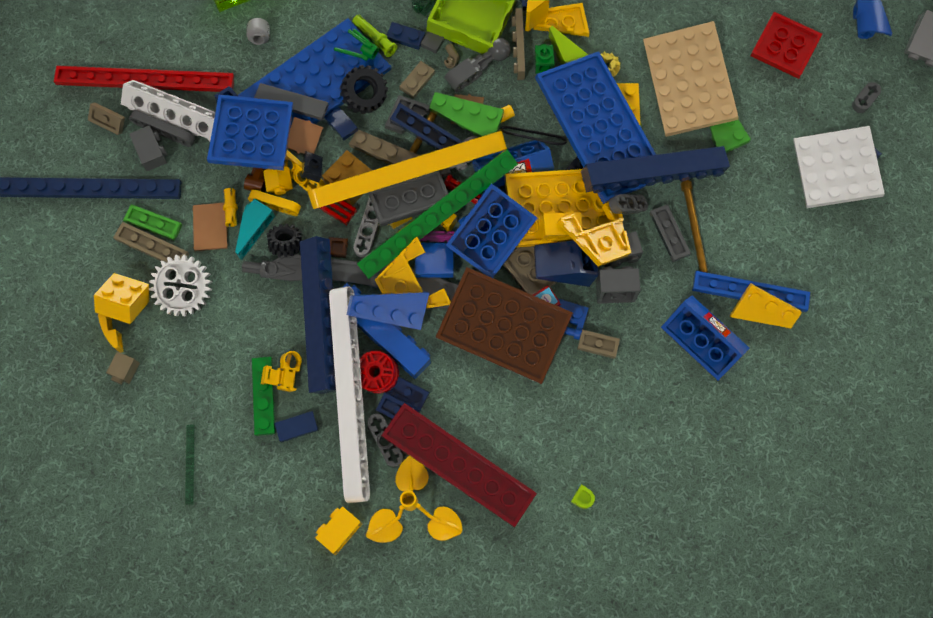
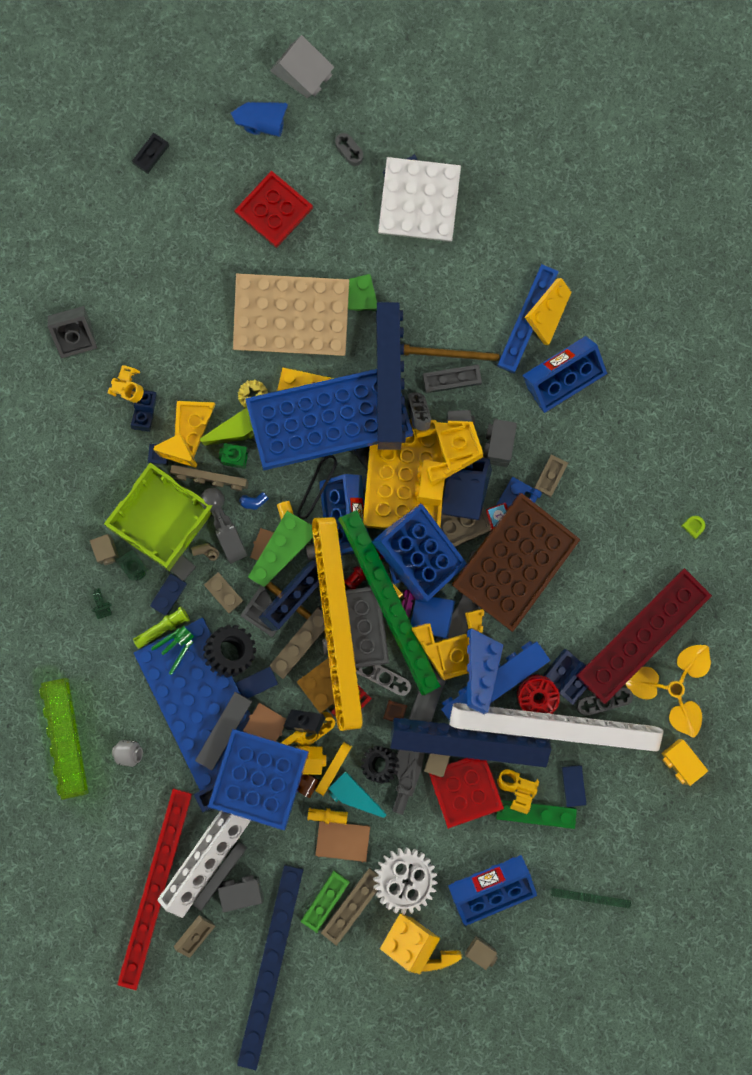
camera: 75 degrees left, 10 degrees up
(183, 367) = (492, 890): none -> blue slope
(273, 323) = (466, 791): none -> red plate
(293, 290) = (436, 764): none -> dark tan panel
(504, 85) = (253, 503): none -> blue arm

